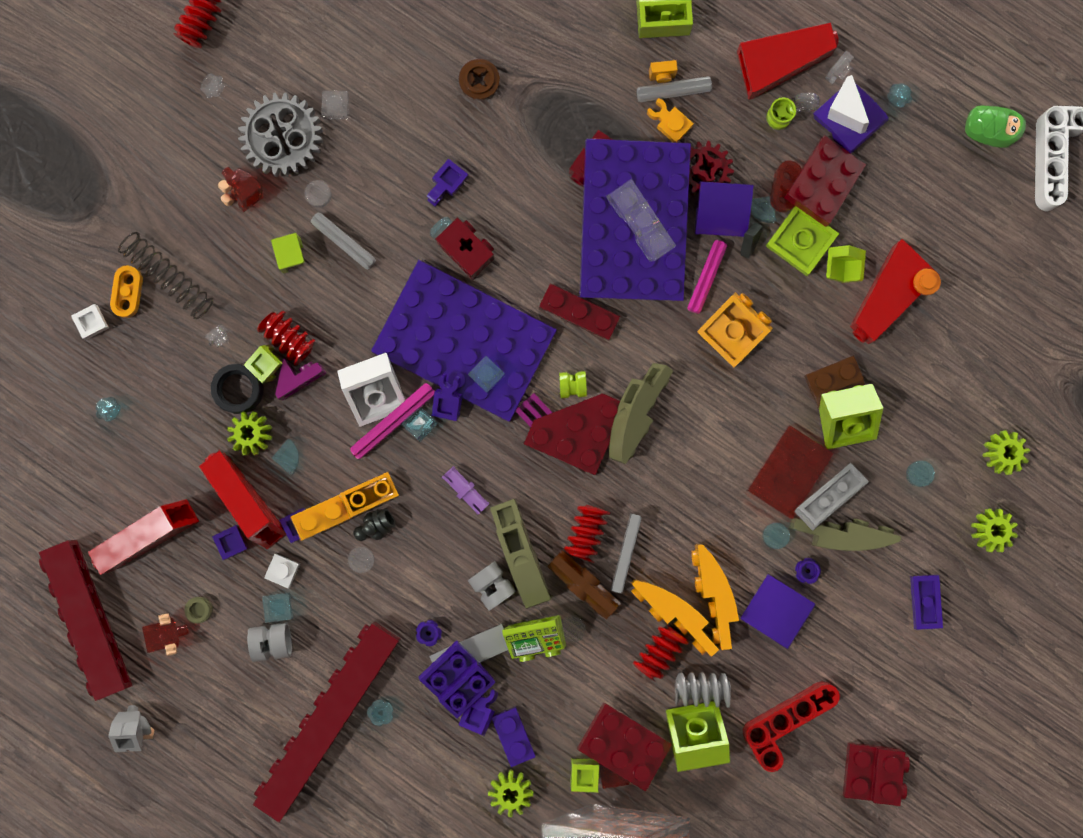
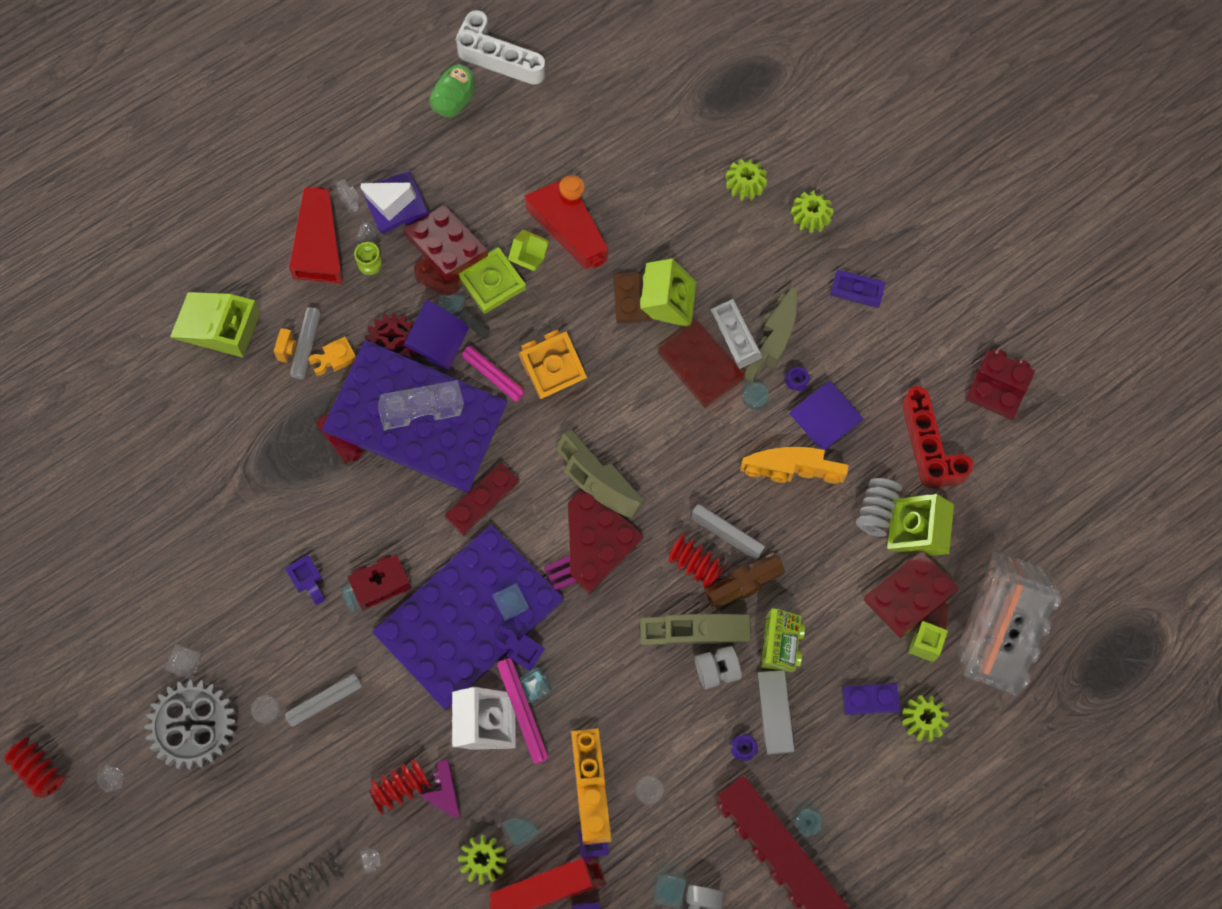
camera: 75 degrees left, 15 degrees down
(217, 383) = (415, 844): black tyre -> none
(242, 188) = (228, 782): clear red piece -> none
(263, 363) = (418, 817): lime panel -> none
(282, 570) = (633, 875): white plate -> none
(288, 251) = (313, 756): lime panel -> none
(375, 525) = (620, 764): pearl dark grey piece -> none
(456, 679) = (798, 732): dark purple slope -> none
(465, 490) = (615, 663): medium lavender pin -> none
(479, 67) = (208, 511): reddish brown gear -> none
(479, 715) = (839, 724): dark purple plate -> none
(573, 384) = (550, 526): lime wheel -> none
(660, 653) = (831, 533): red piece -> none
(669, 606) = (791, 509): light orange slope -> none
(899, 95) = (393, 156): clear light blue plate -> none
(920, 473) = (740, 256): clear light blue tile -> none

